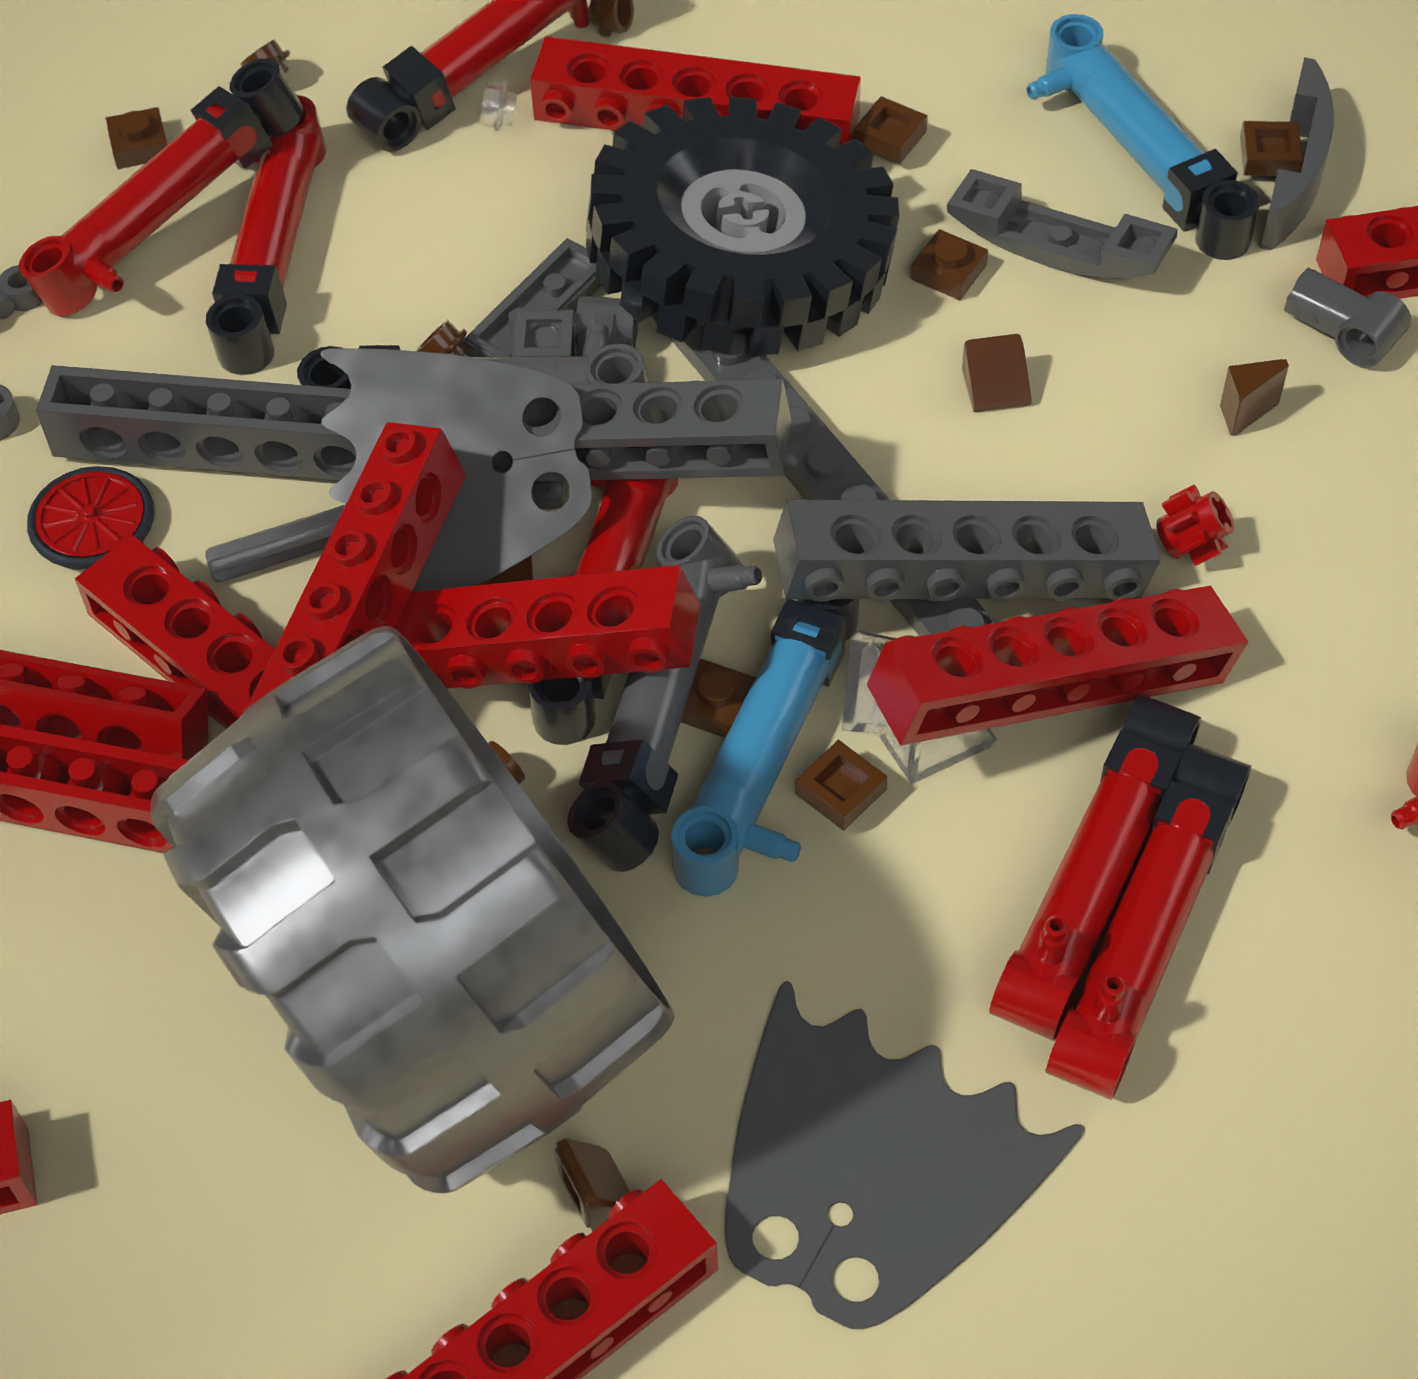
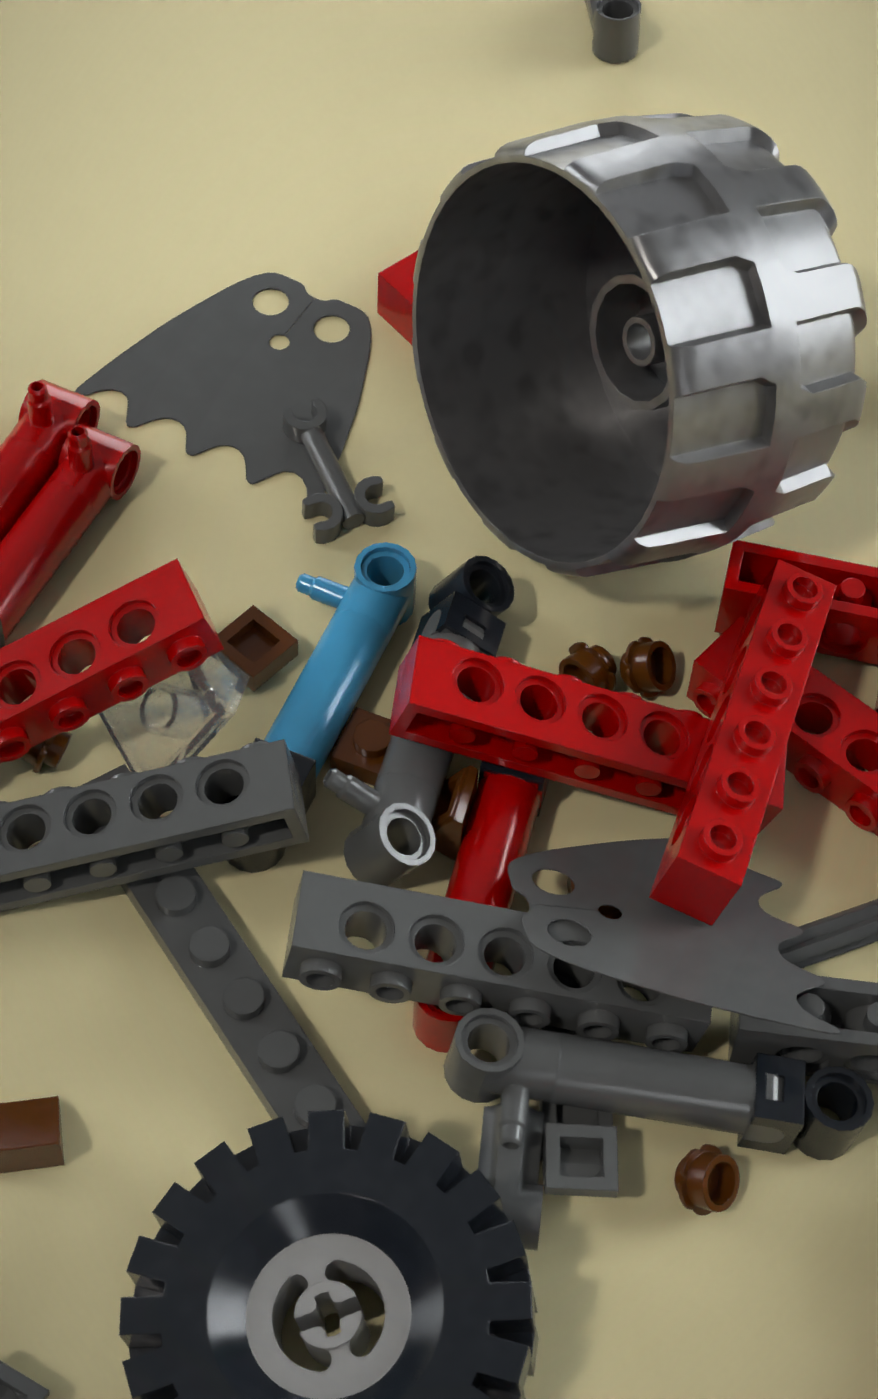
camera: 175 degrees right, 0 degrees up
(550, 286) = (598, 1262): dark grey tile -> none
(754, 968) = (340, 503): none -> dark grey bar
(949, 264) = (57, 1320): reddish brown plate -> none

